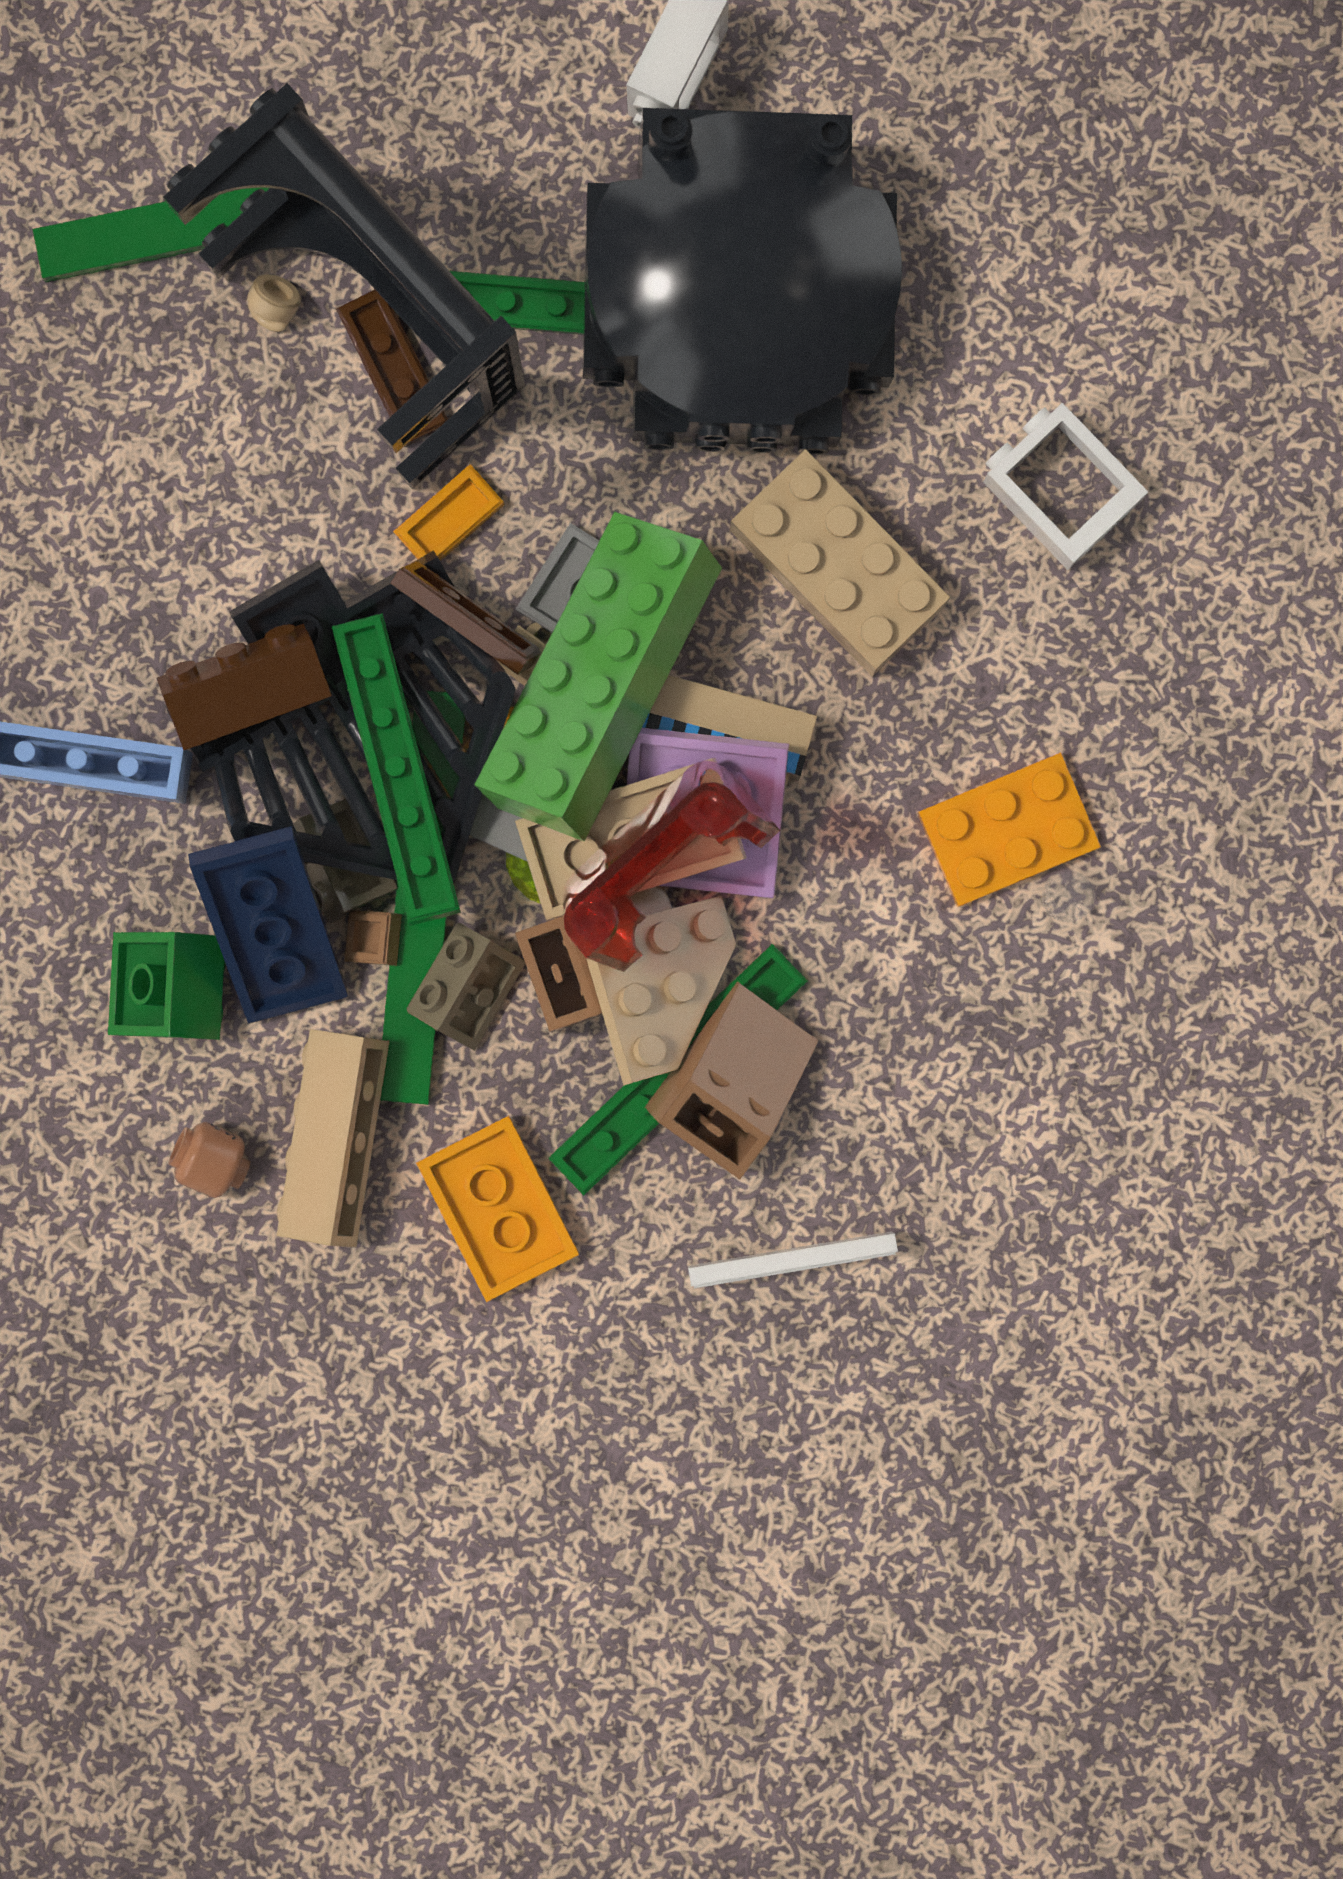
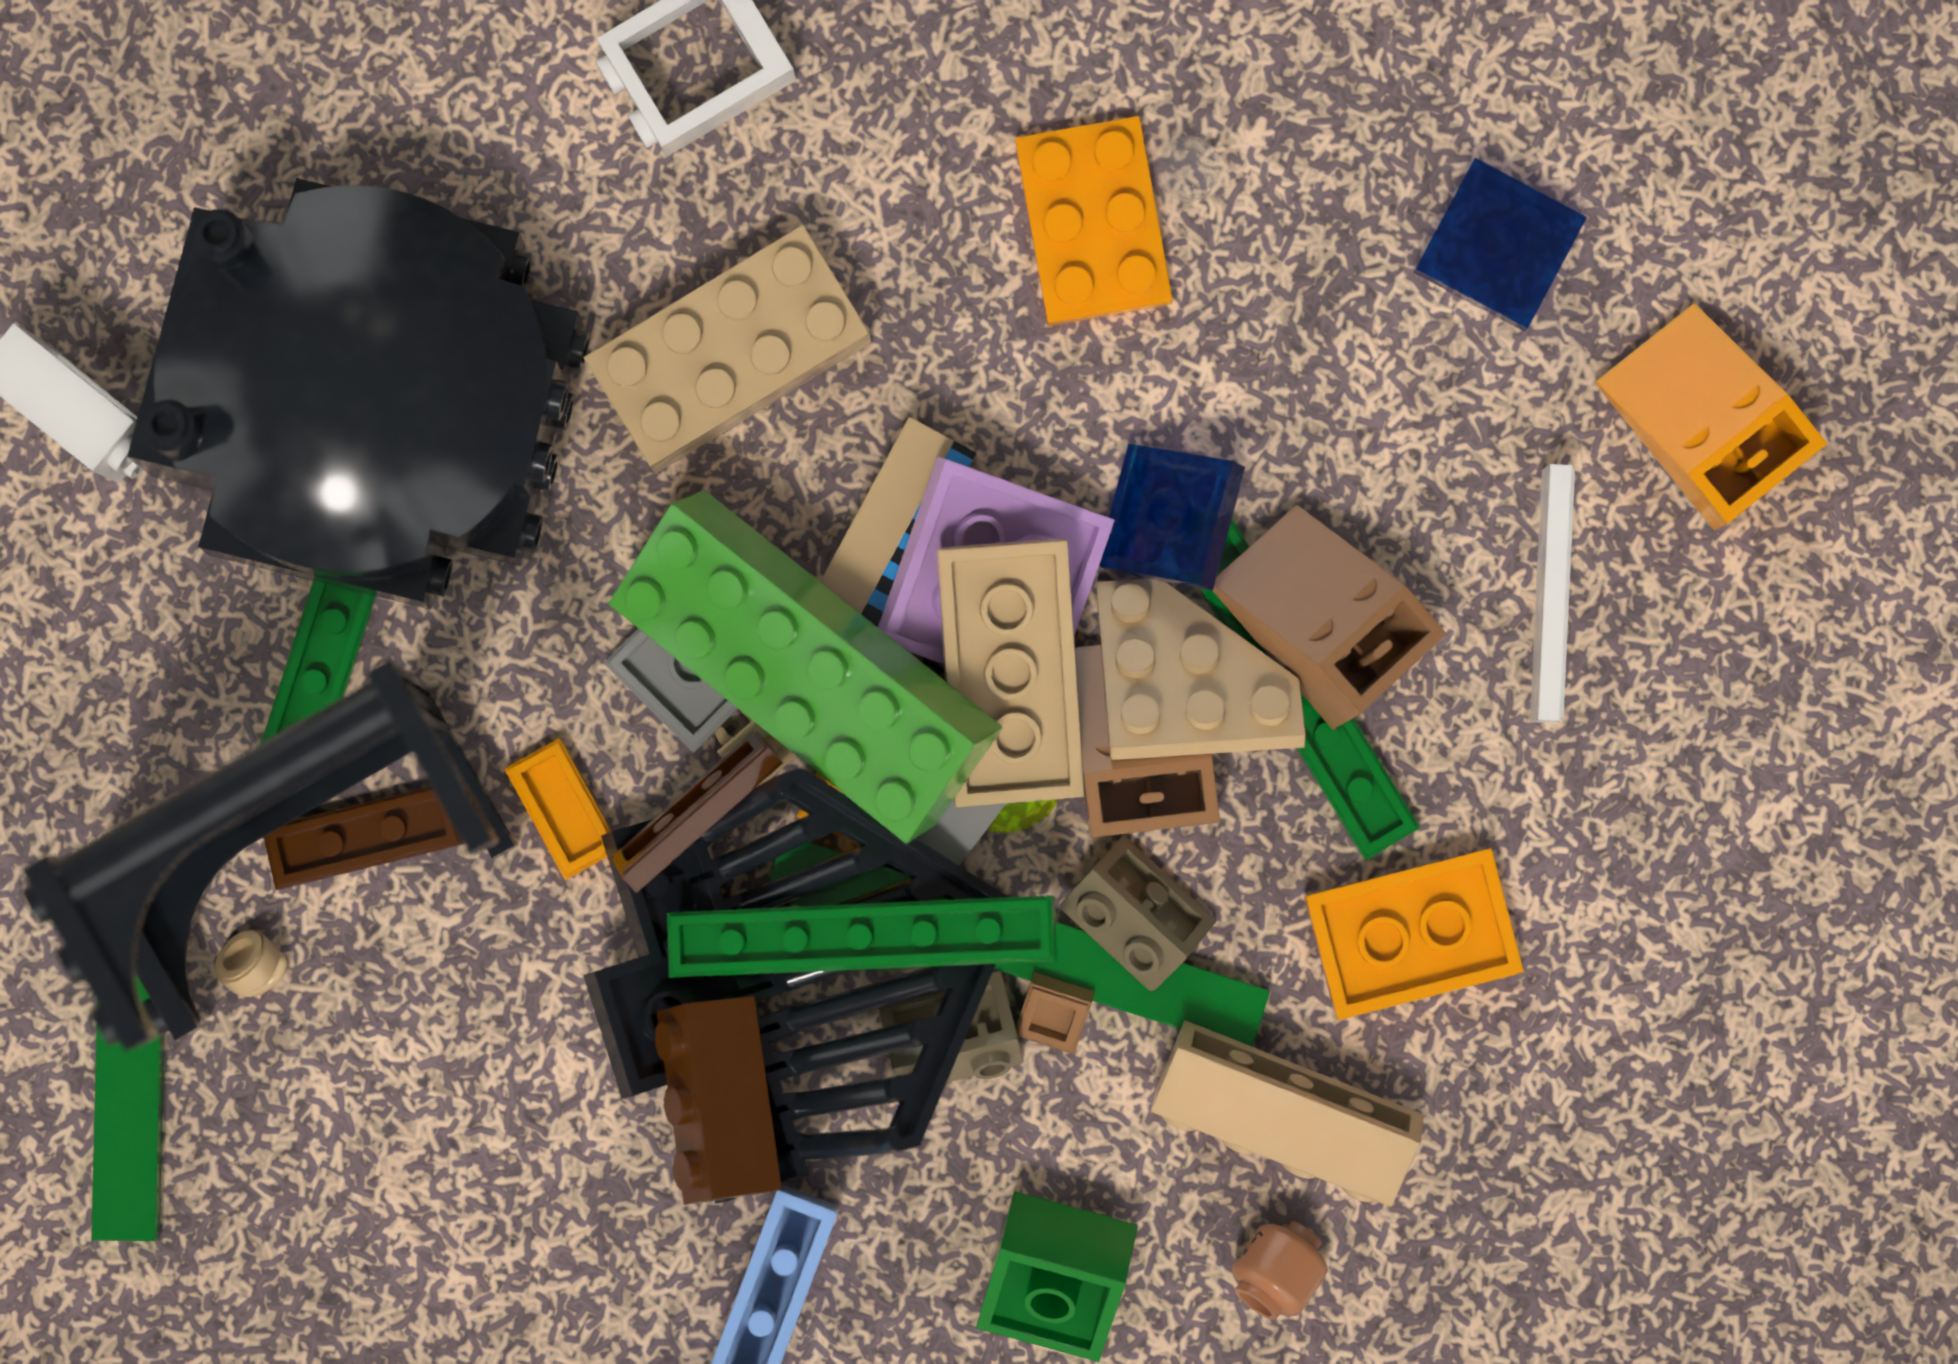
camera: 80 degrees left, 0 degrees up
(268, 924) = (1016, 1132): dark blue plate -> none
(599, 893) = (990, 579): clear red windscreen -> none
(785, 941) = (1171, 516): none -> clear blue plate
(963, 1354) = (1710, 416): none -> light orange slope
(1063, 1157) = (1500, 244): none -> clear blue plate

